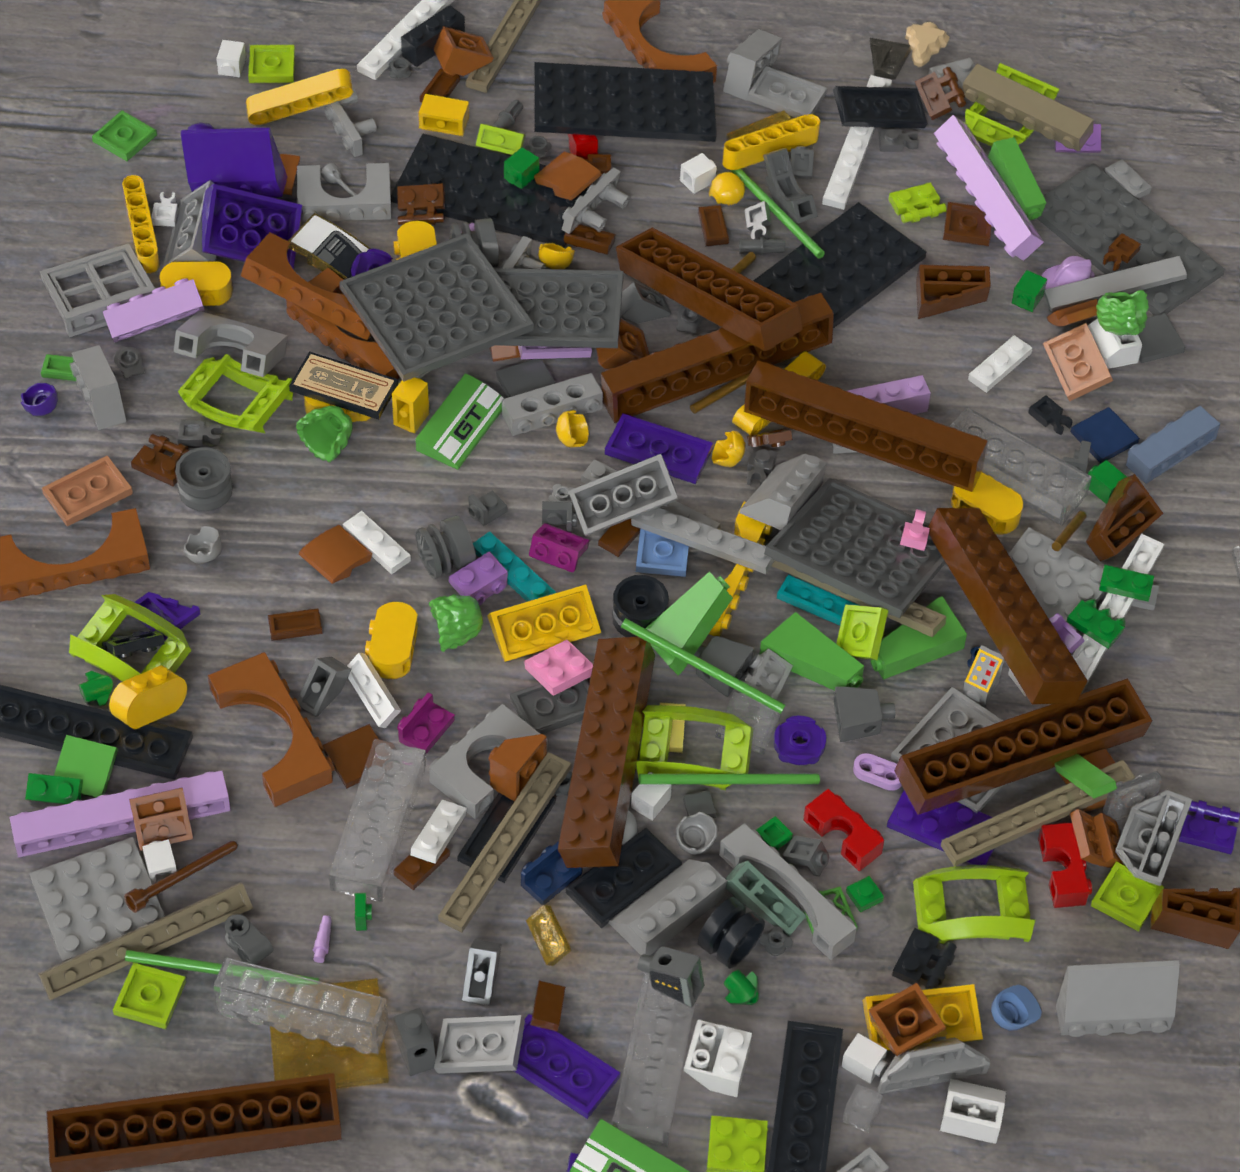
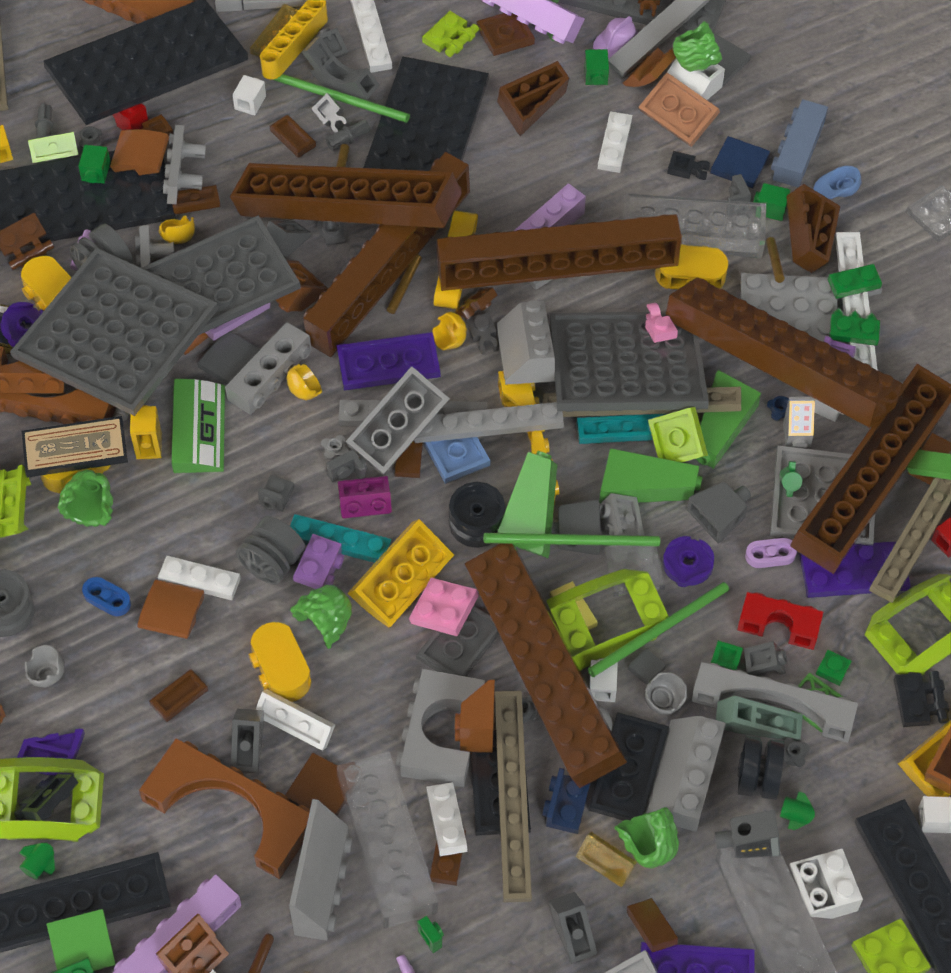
camera: 30 degrees left, 5 degrees up
(148, 697) = (99, 843): yellow brick -> none
(292, 519) = (108, 597): none -> blue plate
(301, 811) = (319, 873): none -> light grey slope
(424, 724) = (363, 726): magenta bracket -> none
(596, 937) = (650, 837): none -> bright green hair
(727, 188) = (282, 97): yellow hair -> none
(937, 716) = (790, 478): none -> piece
(1182, 495) = (839, 183): none -> medium blue cap

